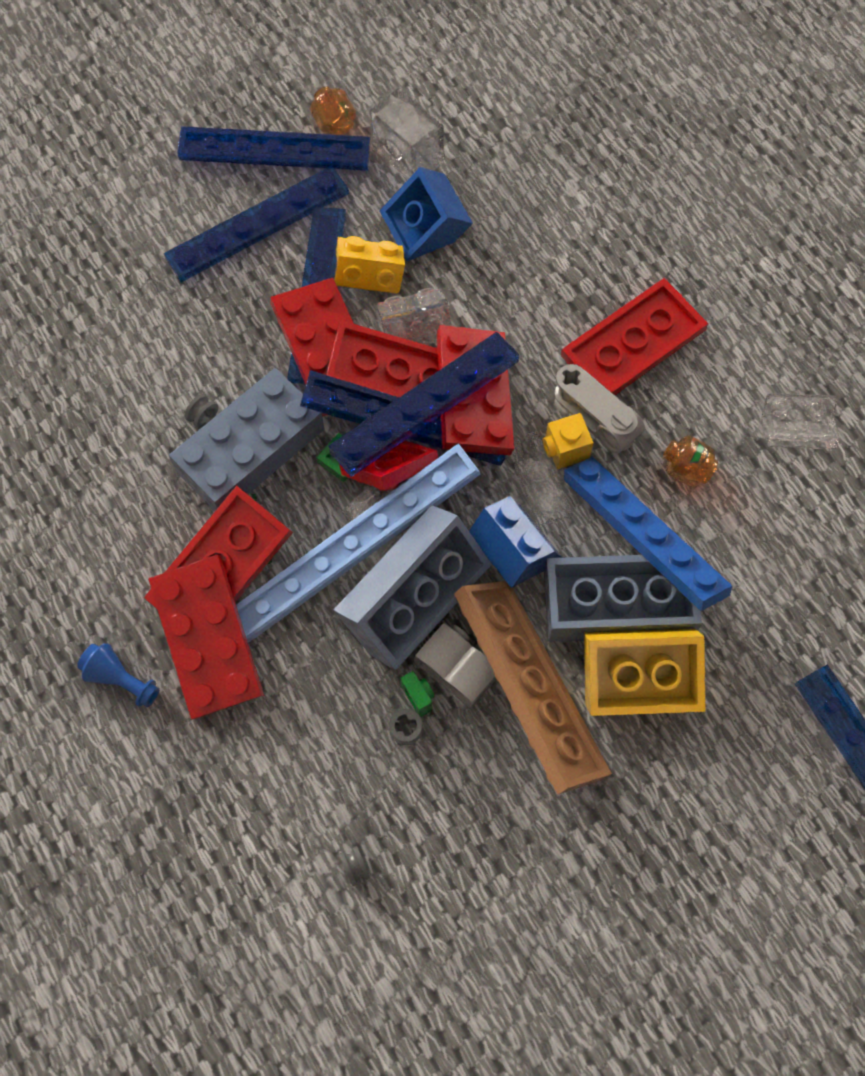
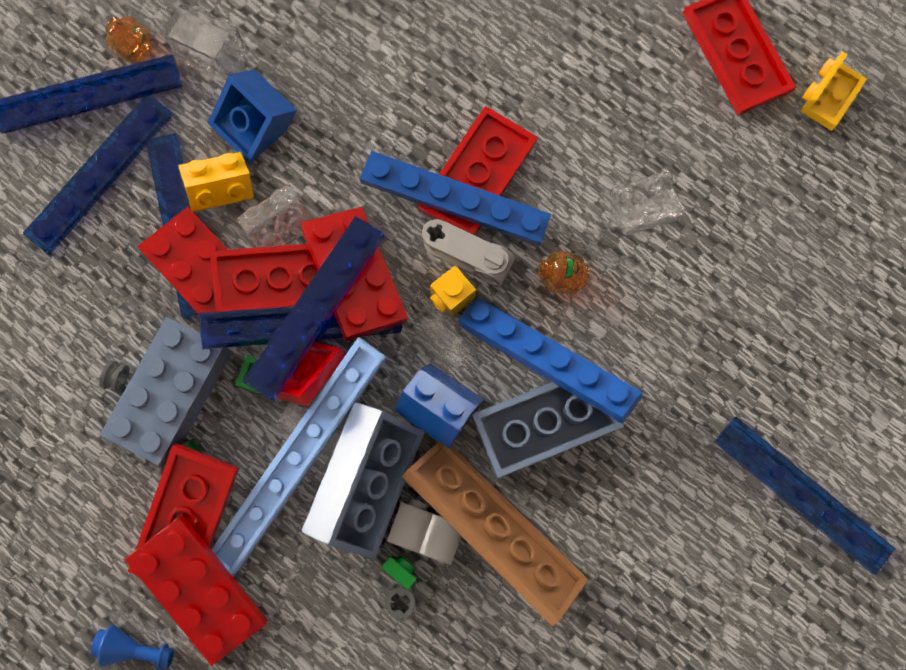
camera: 20 degrees left, 10 degrees up
(604, 354) = (455, 198): none -> blue plate
(644, 672) = (588, 485): yellow brick -> none

